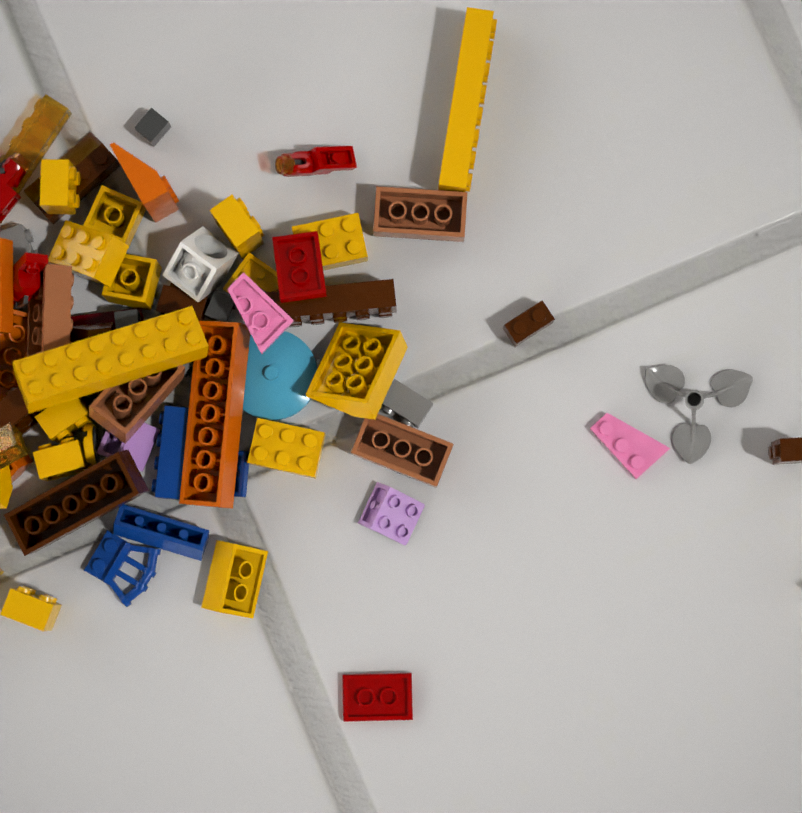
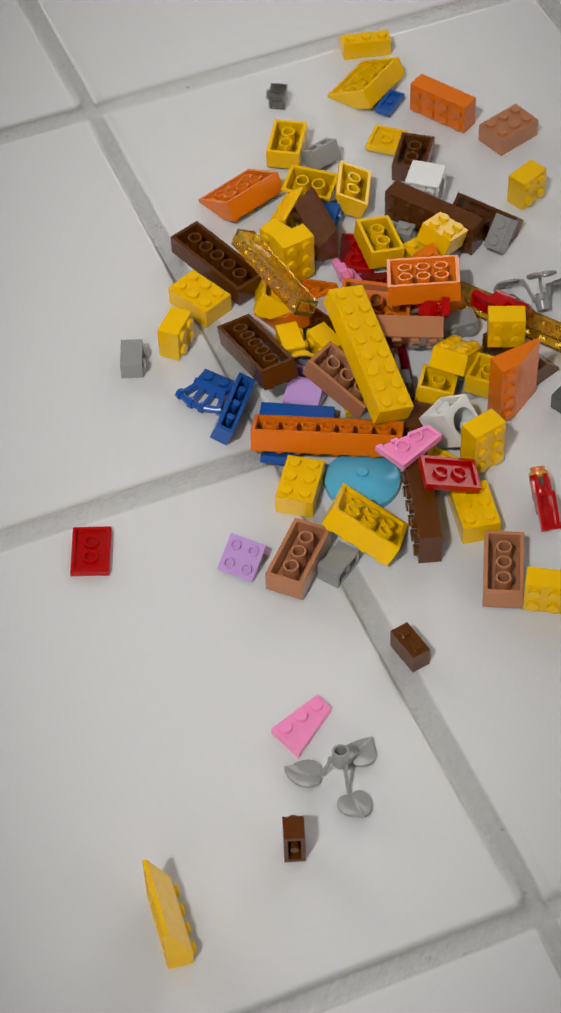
camera: 90 degrees right, 35 degrees down
(65, 664) = (132, 358): none -> light grey brick
(234, 579) = (193, 457): yellow slope -> none

